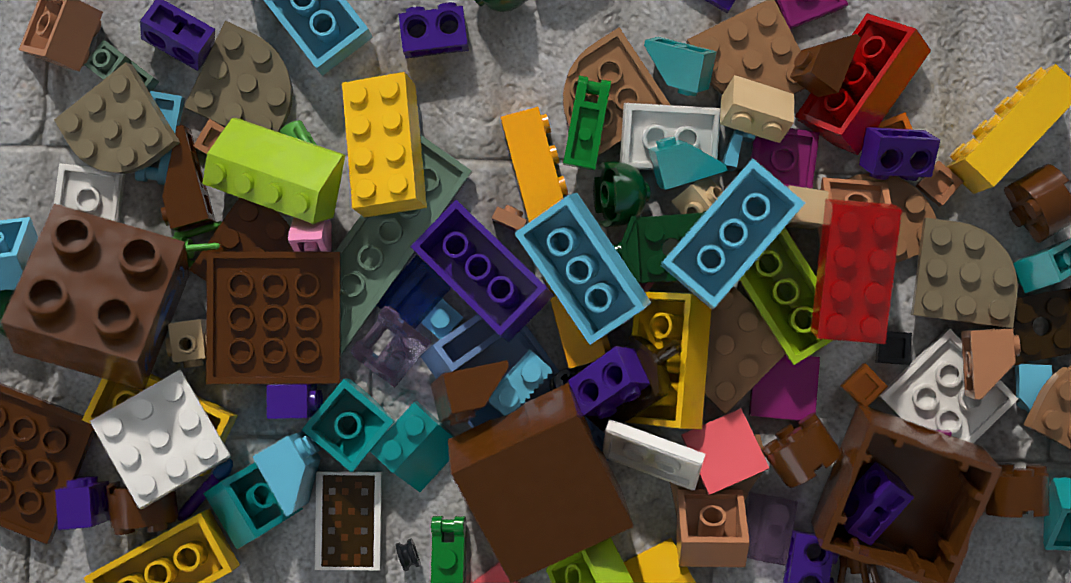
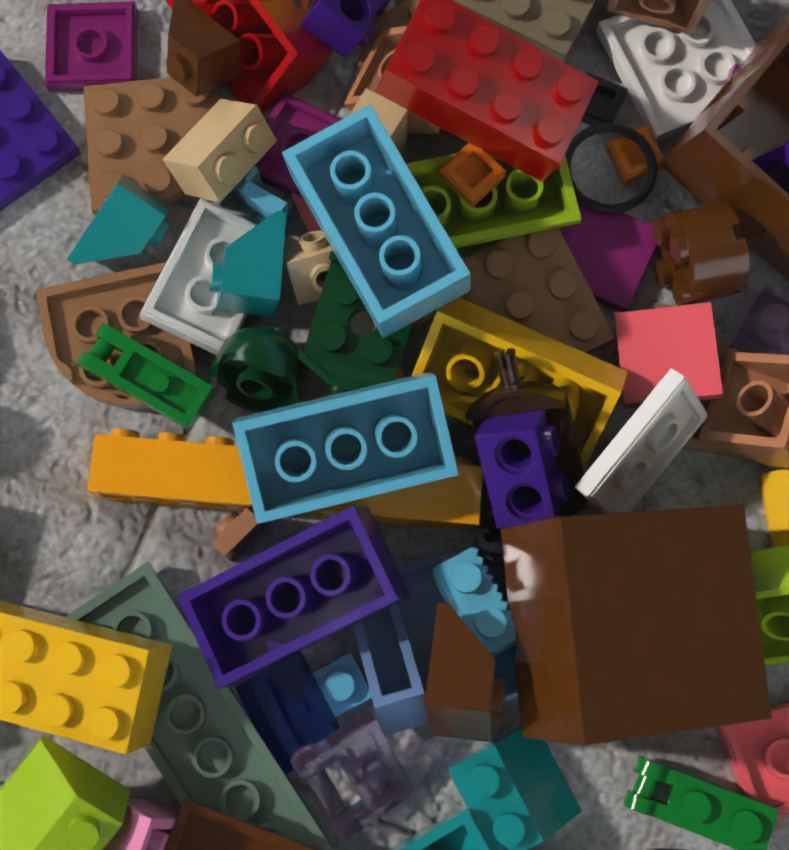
camera: 70 degrees left, 10 degrees down
(798, 282) = (472, 174): none -> orange tile
(845, 402) = (641, 142): none -> black tyre

